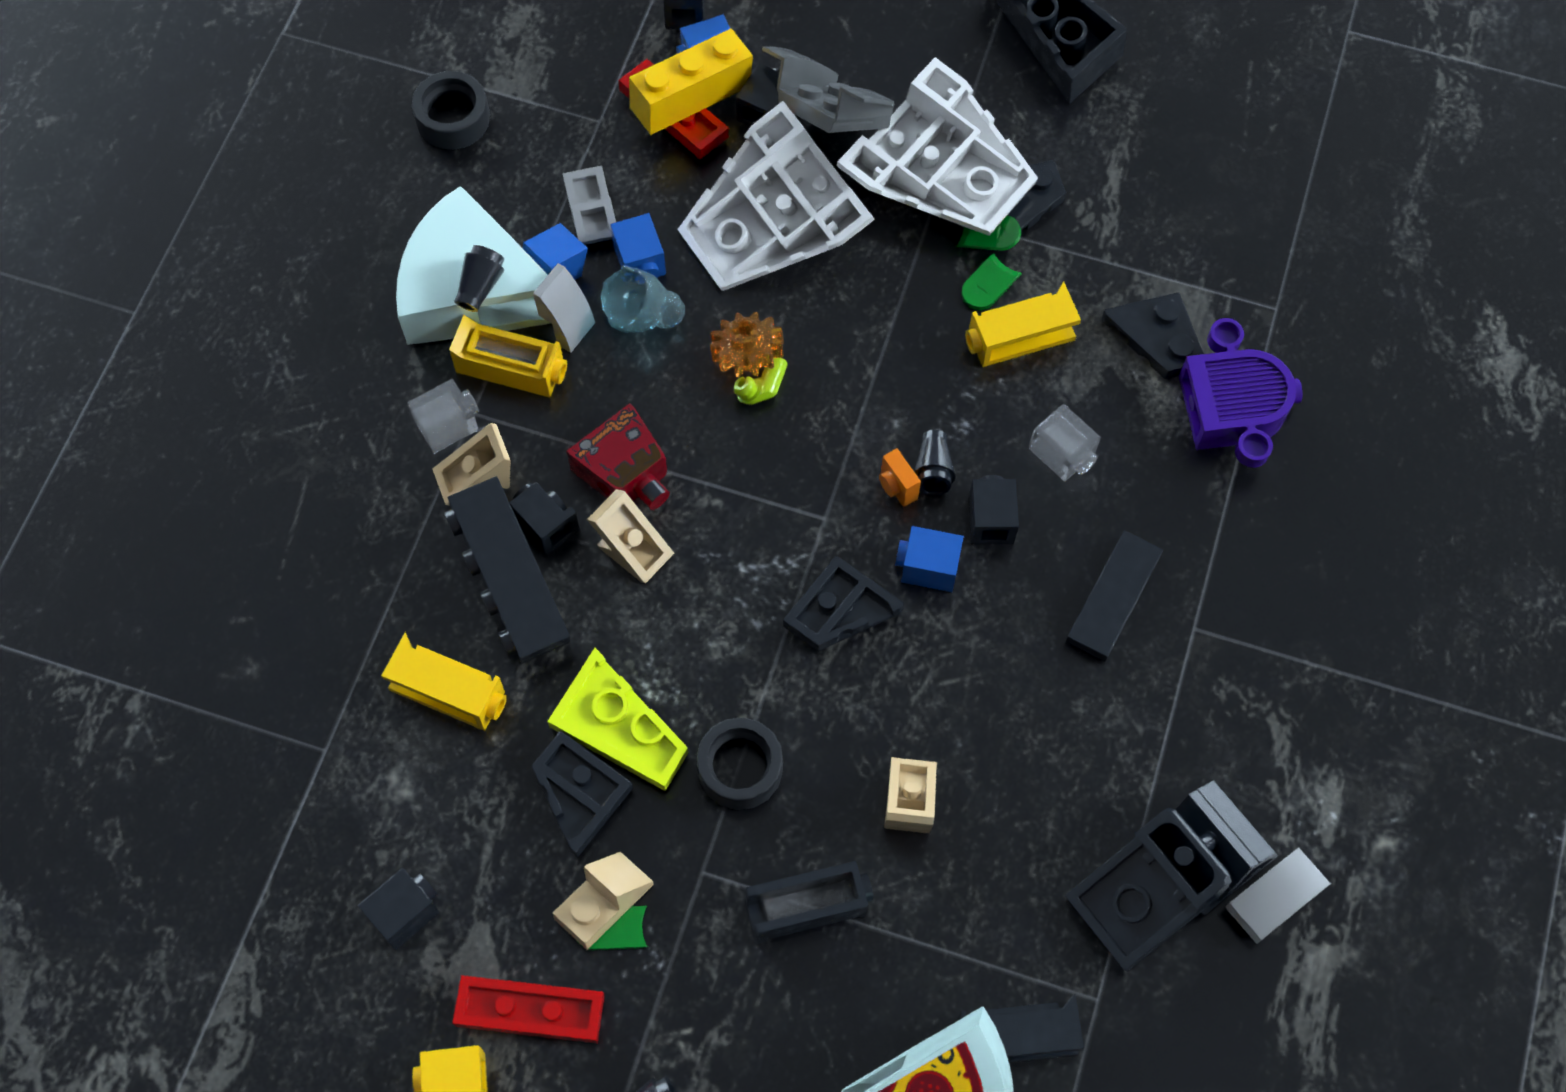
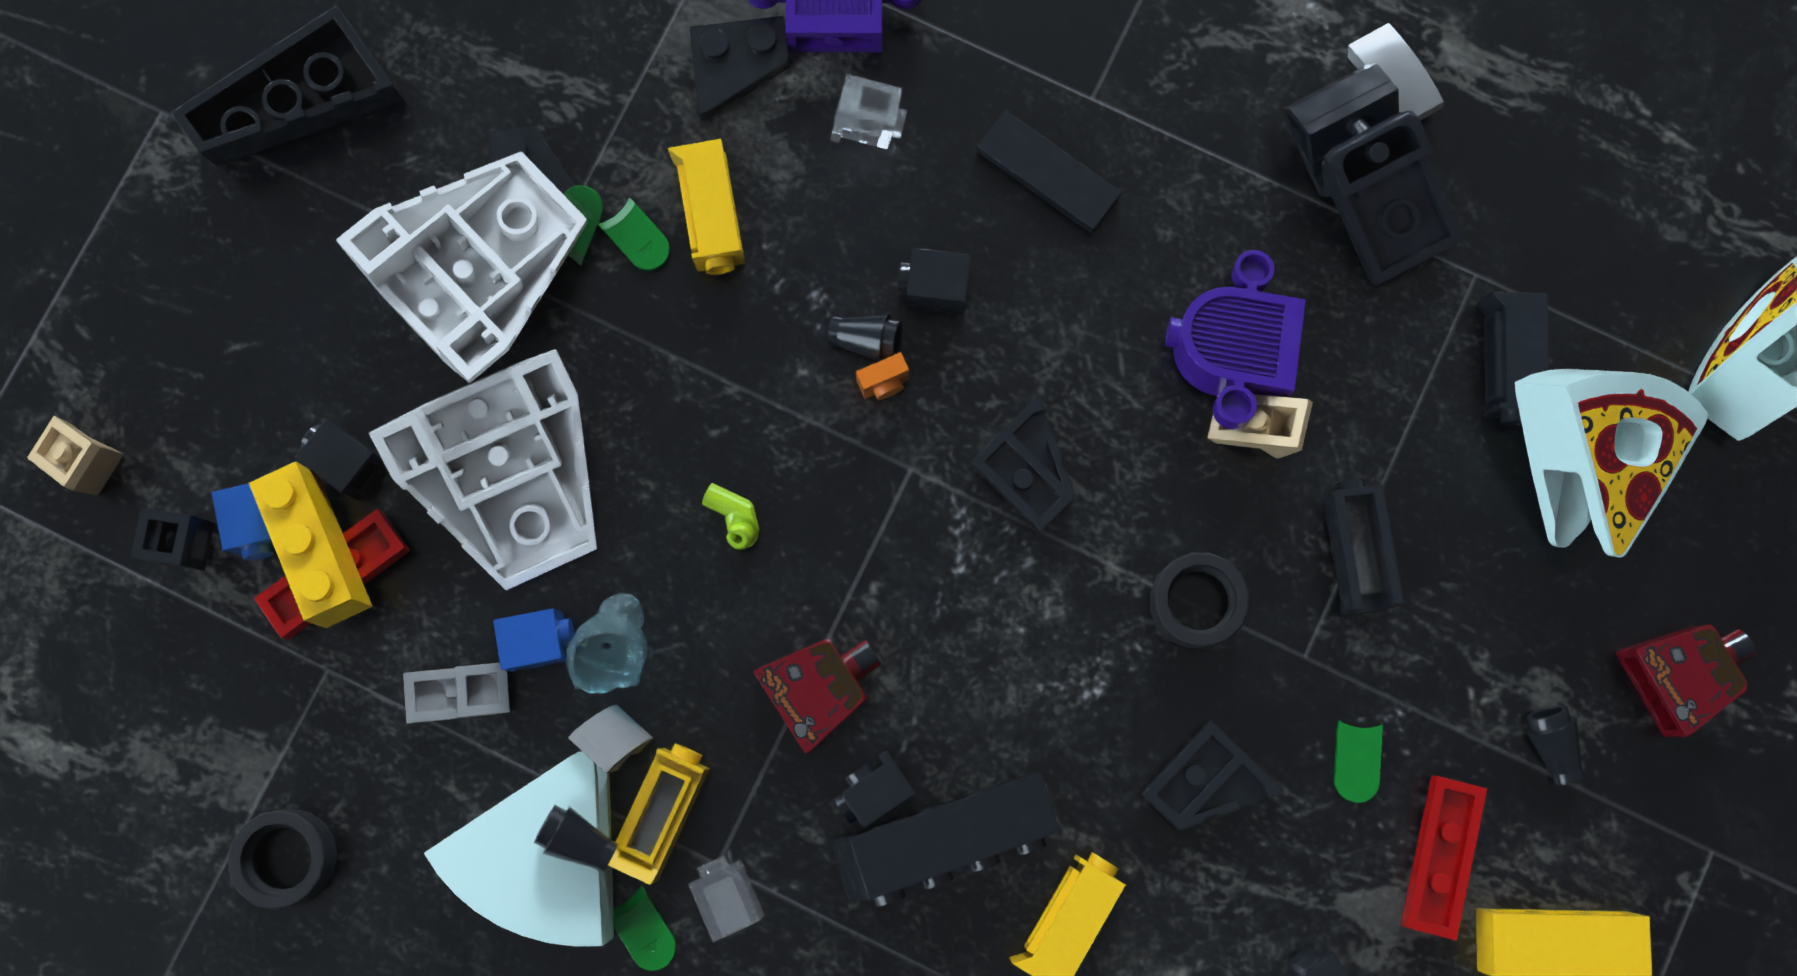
camera: 80 degrees left, 15 degrees up
(413, 367) = (644, 932): none -> green piece
(474, 462) = (805, 869): tan slope -> none
(556, 247) = (530, 743): brick -> none
(607, 893) = (1332, 765): tan slope -> none
(617, 724) = (1137, 730): neon yellow wing -> none
(629, 536) = (918, 690): tan slope -> none
(746, 344) = (691, 544): clear orange gear -> none
(815, 96) = (365, 383): dark grey piece -> none
(930, 558) = (986, 358): blue brick -> none
(985, 771) = (1240, 341): none -> dark purple piece
(1065, 443) = (865, 187): clear brick -> none
(1133, 435) = (868, 112): none -> clear brick

